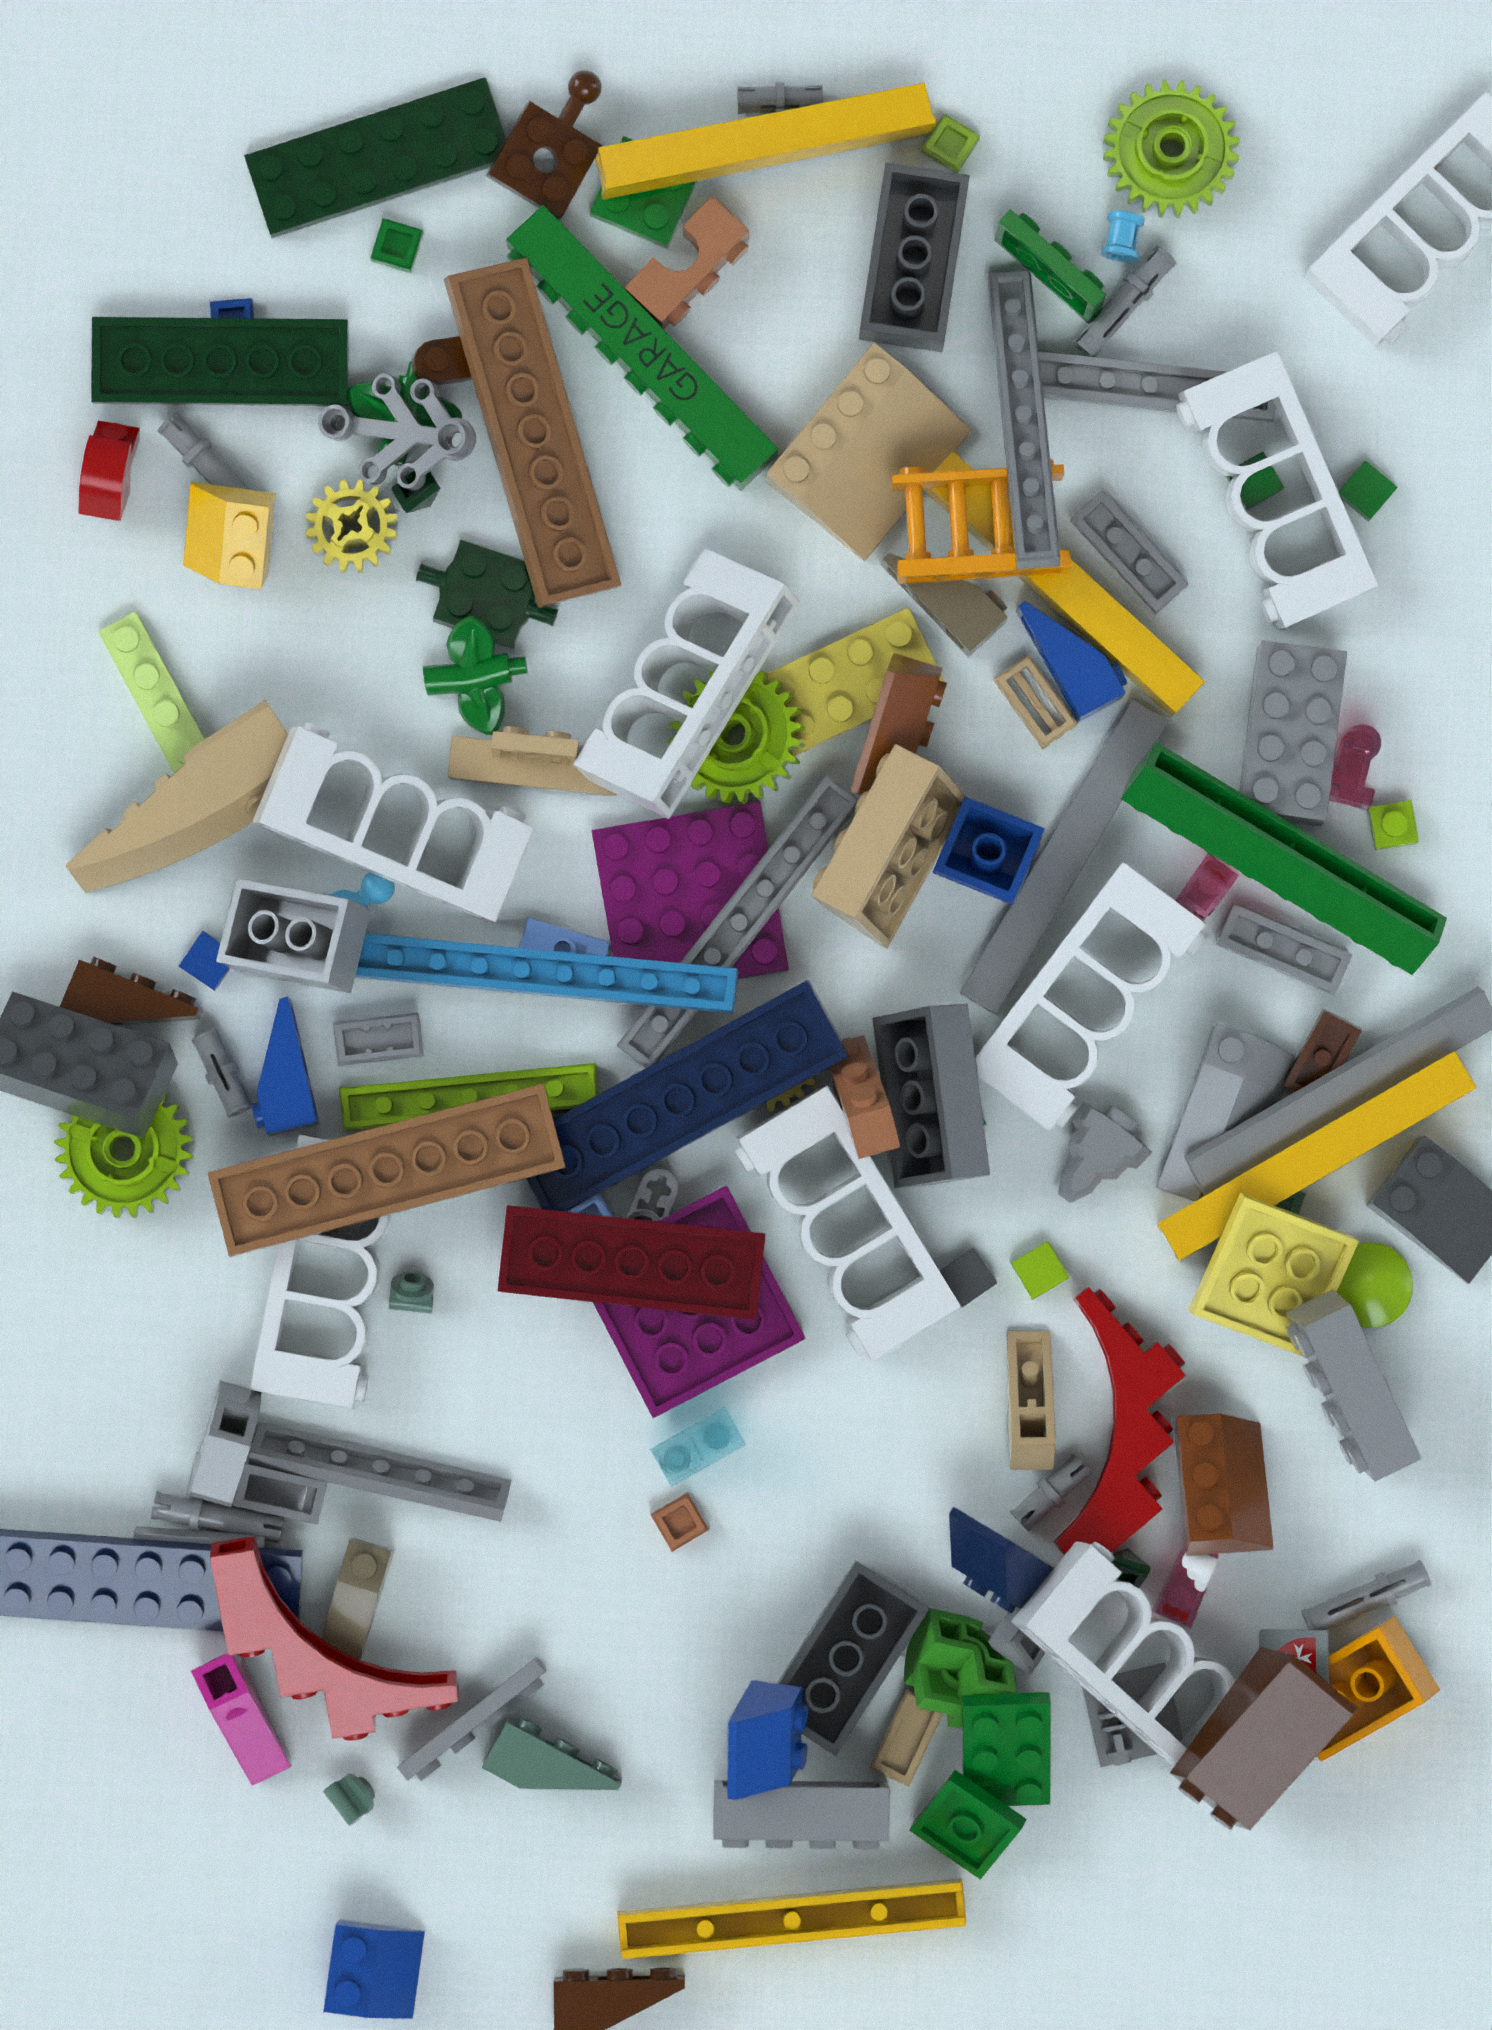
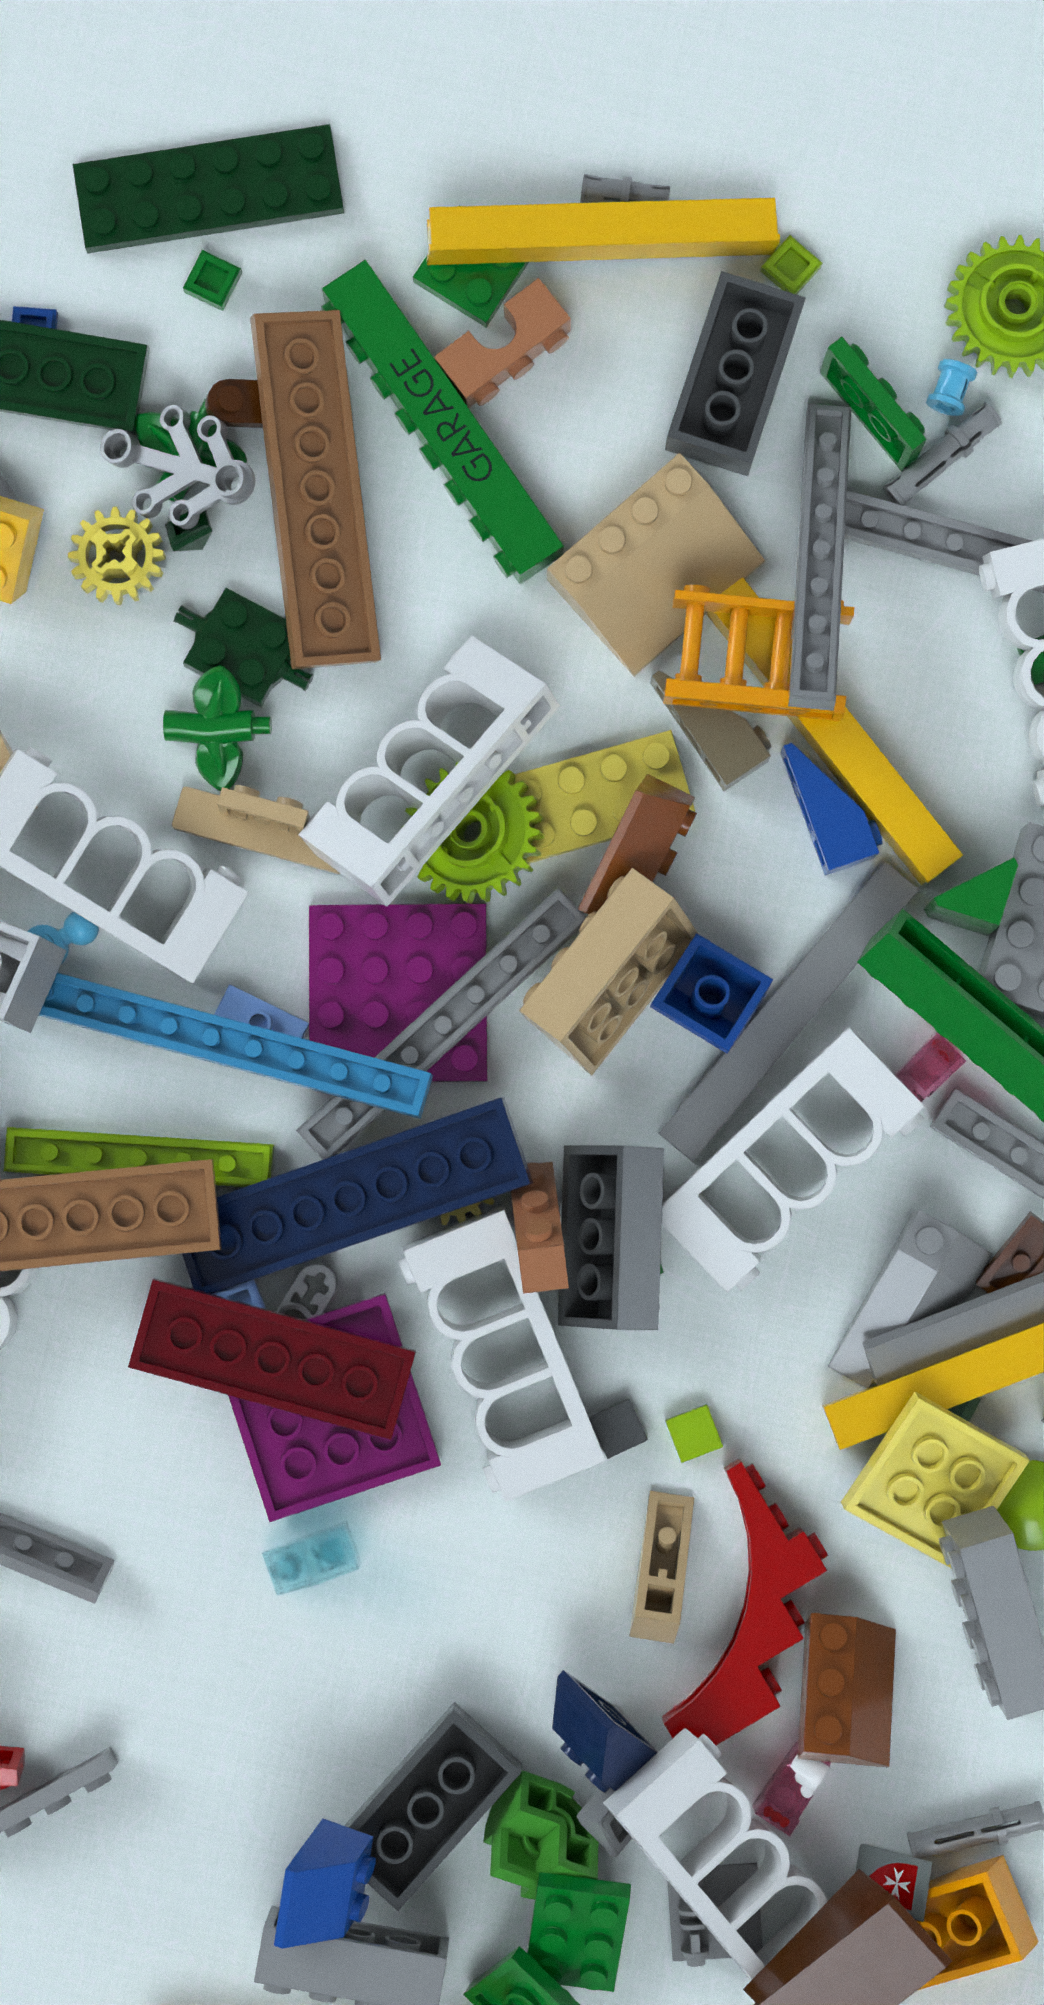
camera: 15 degrees right, 0 degrees up
(378, 1039) = (55, 1083): light grey plate -> none
(411, 1292) = (45, 1349): sand green plate -> none
(536, 1763) = (91, 1861): sand green slope -> none
(541, 130) = (378, 186): reddish brown plate -> none
(679, 1522) = (280, 1632): nougat tile -> none
(905, 1740) = (473, 1901): tan tile -> none
(1050, 1492) = (667, 1666): light grey pin -> none
(1055, 731) = (769, 855): tan tile -> none
(1099, 1150) = (776, 1319): light grey rock -> none
(1128, 552) = (905, 710): light grey plate -> none
(1133, 1568) = (736, 1760): dark green slope -> none
(1224, 724) = (977, 902): none -> green slope

